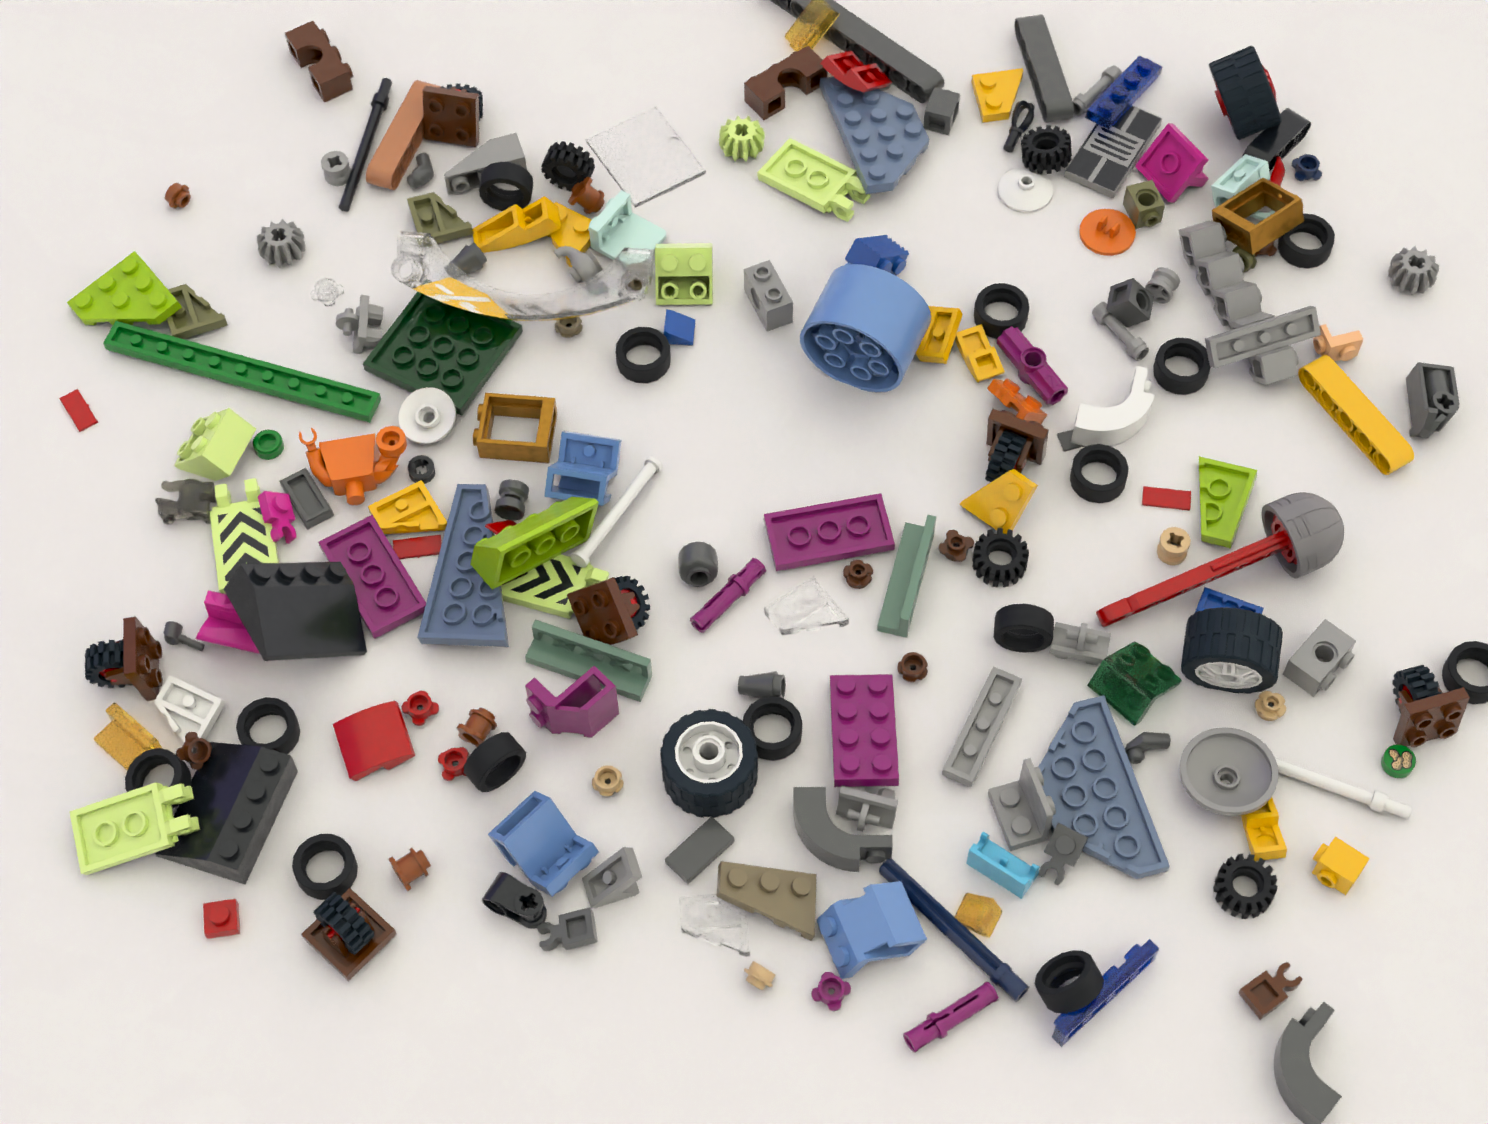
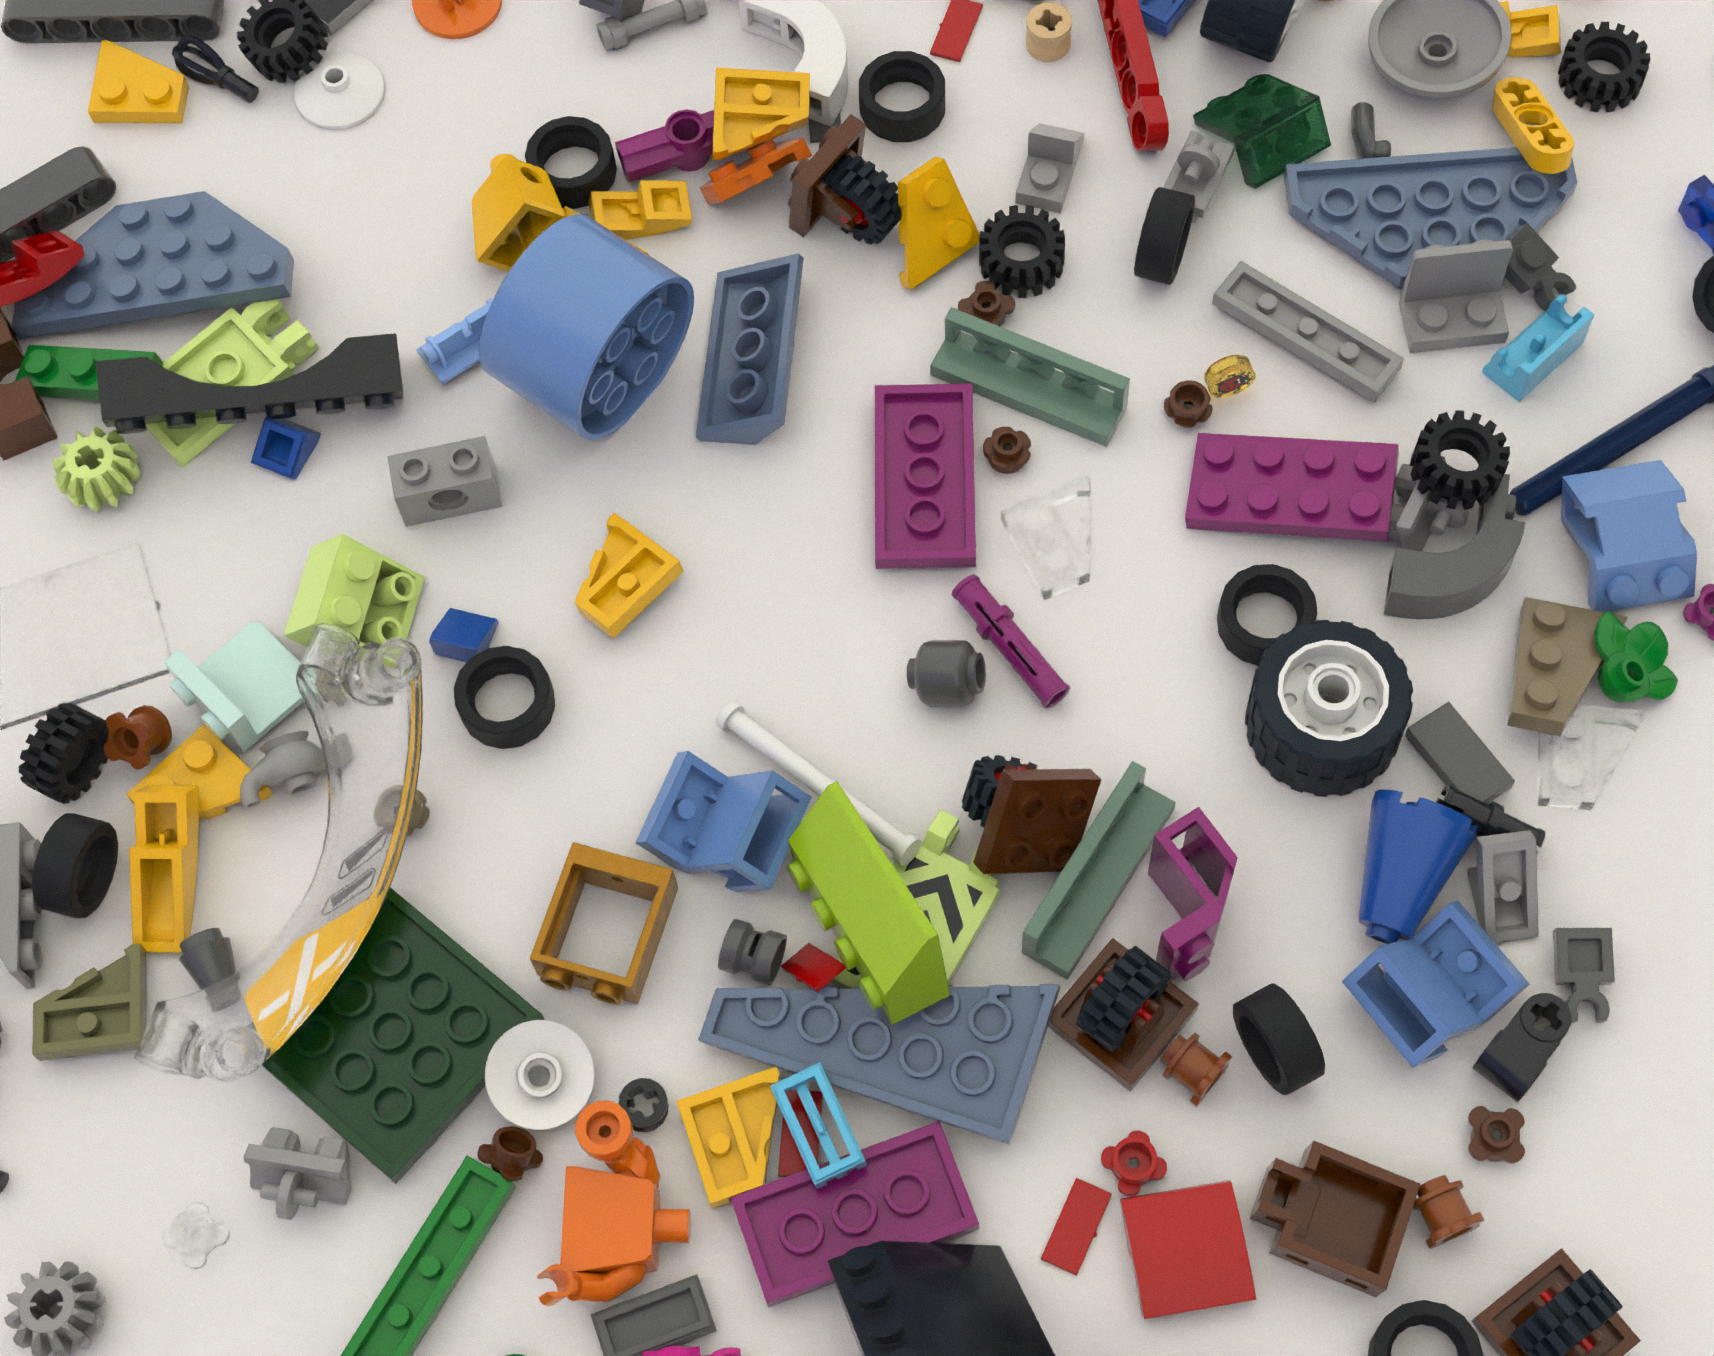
camera: 75 degrees left, 5 degrees up
(383, 687) = (1076, 1226): none -> red window
(390, 410) = (511, 1153): none -> reddish brown plate
(399, 811) = (1336, 1216): none -> reddish brown piece
(416, 548) = (837, 1167): none -> medium azure tile
(450, 756) = (1259, 1102): red plate -> none
(463, 901) = (1482, 1143): none -> reddish brown plate
(500, 685) = (1122, 1012): none -> plate
(603, 774) = (1324, 863): tan plate -> none
(619, 819) = (1408, 862): none -> blue cone
(655, 866) = (1489, 818): none -> black pin
(728, 395) = (624, 577): none -> yellow wing
(759, 976) = (1685, 704): tan plate -> none
(762, 685) = (1189, 613): dark grey cone -> none
(780, 220) = (284, 446): none -> blue slope
(783, 144) = (144, 392): none -> black arch
(787, 943) = (1633, 660): none -> green plate
(800, 120) = (70, 370): none -> green plate
(878, 253) = (426, 302): blue brick -> none
(893, 425) = (750, 351): none -> sand blue slope
(896, 792) = (1467, 437): none -> black tyre
(936, 685) = (1229, 376): none -> clear yellow tile
(941, 111) = (148, 164): dark grey brick -> none
(952, 284) = (512, 210): none -> yellow torso
(979, 914) = (1605, 400): clear yellow slope -> none
(1051, 387) = (756, 107): none -> yellow wing
(1073, 565) = (1048, 167): none -> light grey slope
(1168, 849) = (1521, 103): none -> yellow beam

